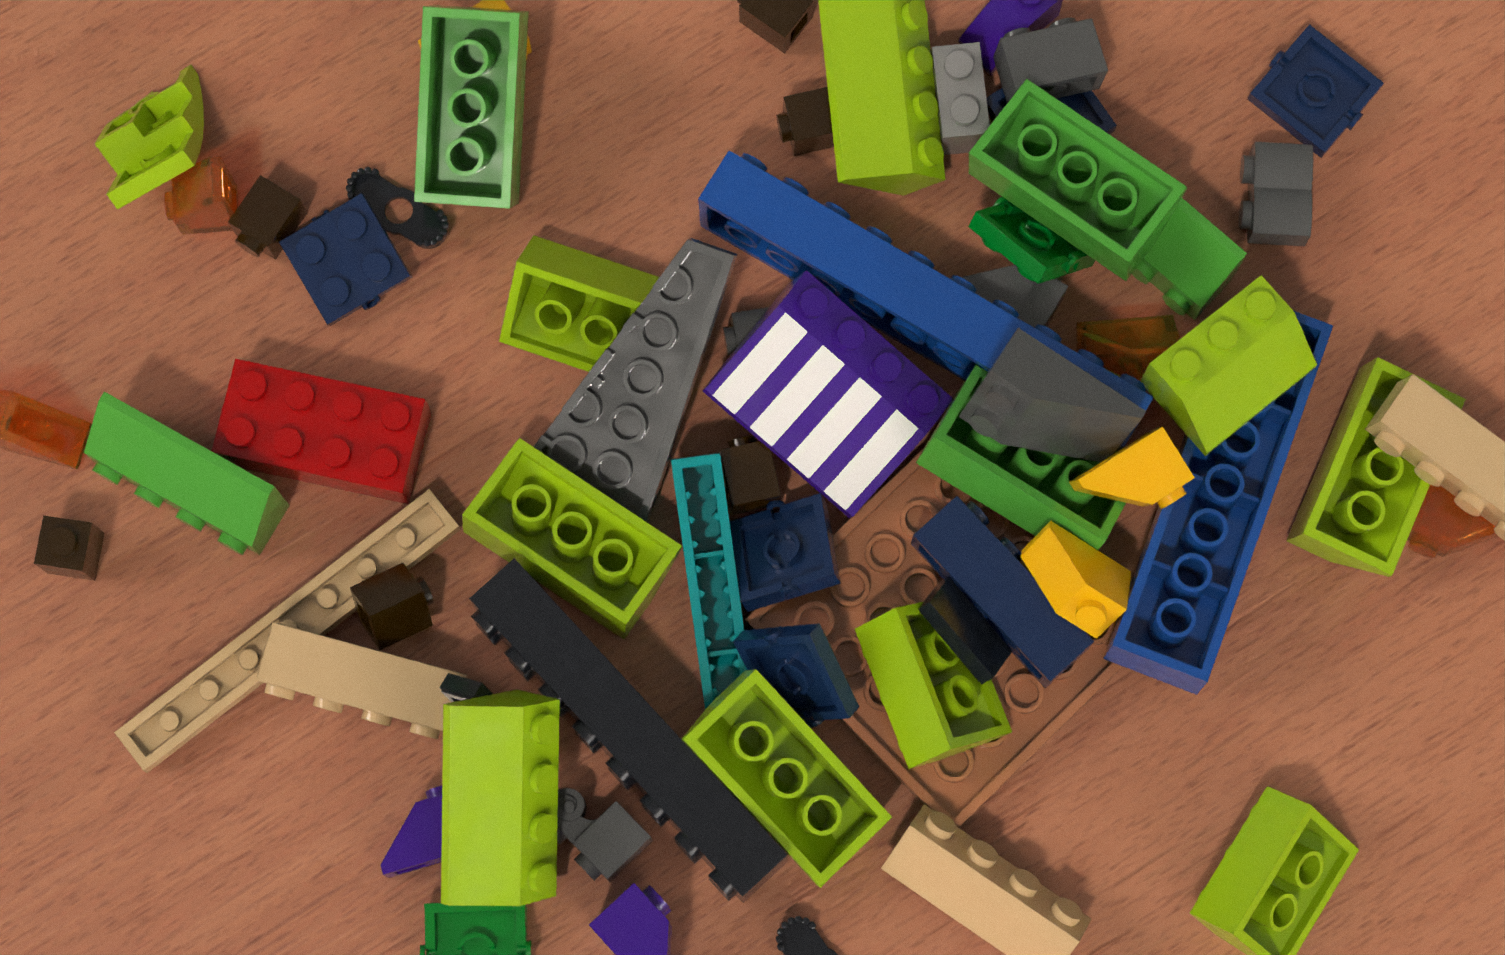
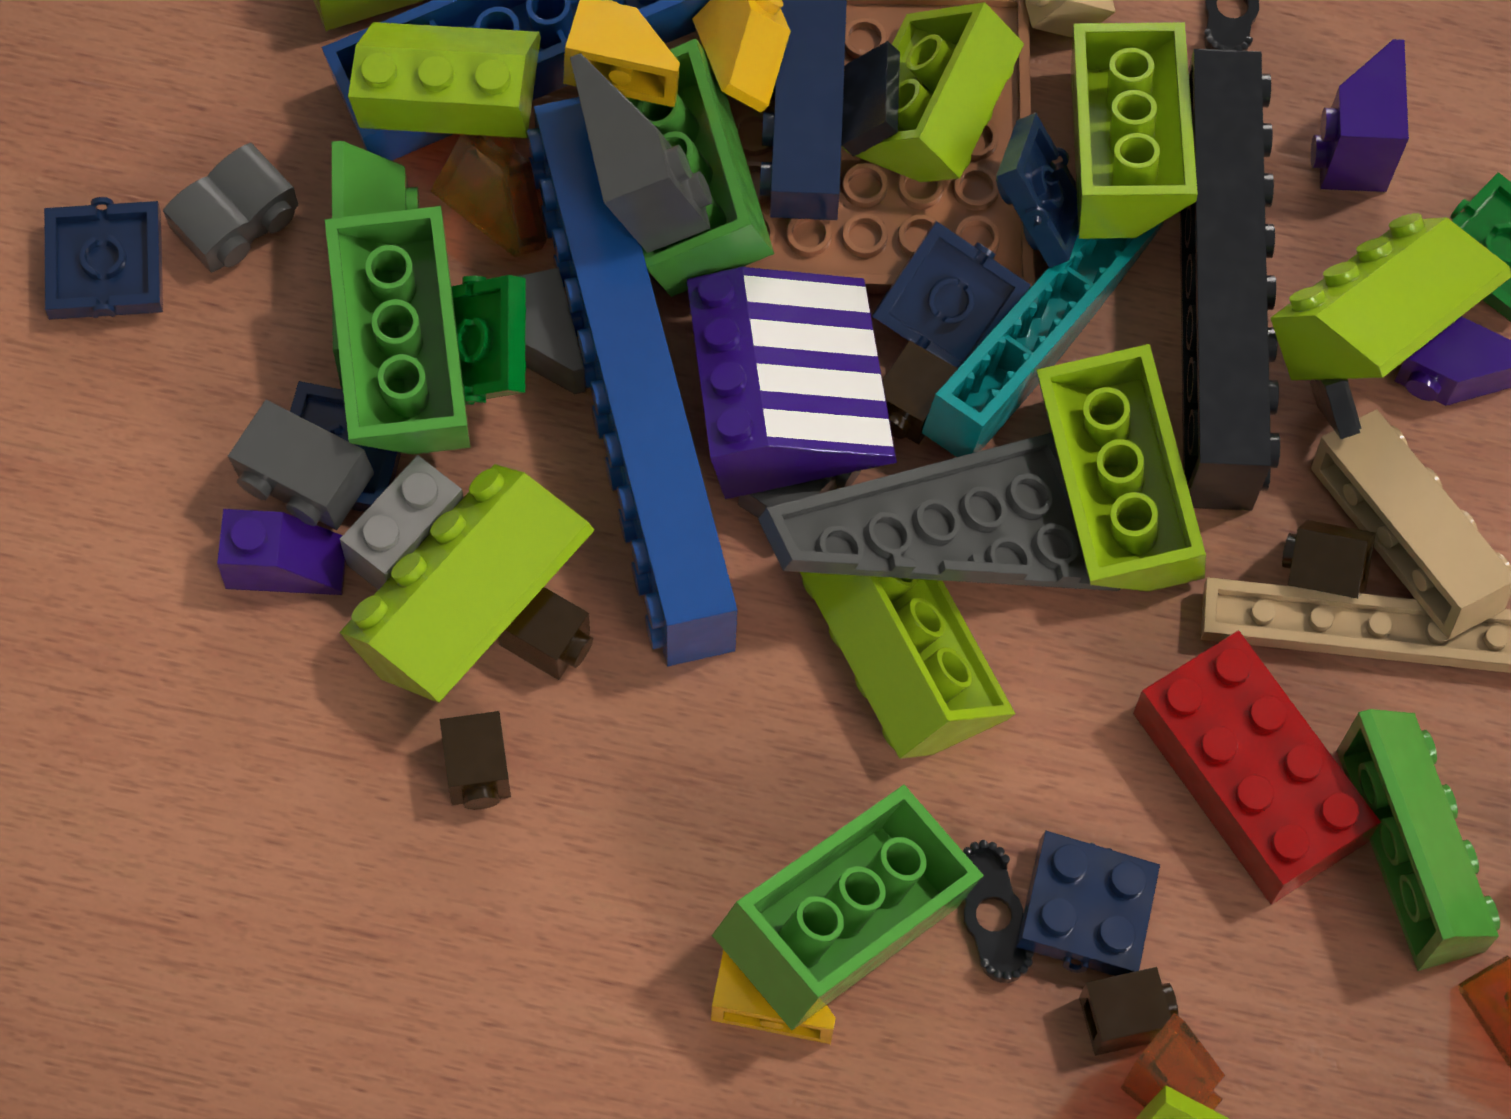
camera: 140 degrees left, 10 degrees down
(604, 843) = (1315, 228): dark grey brick -> none

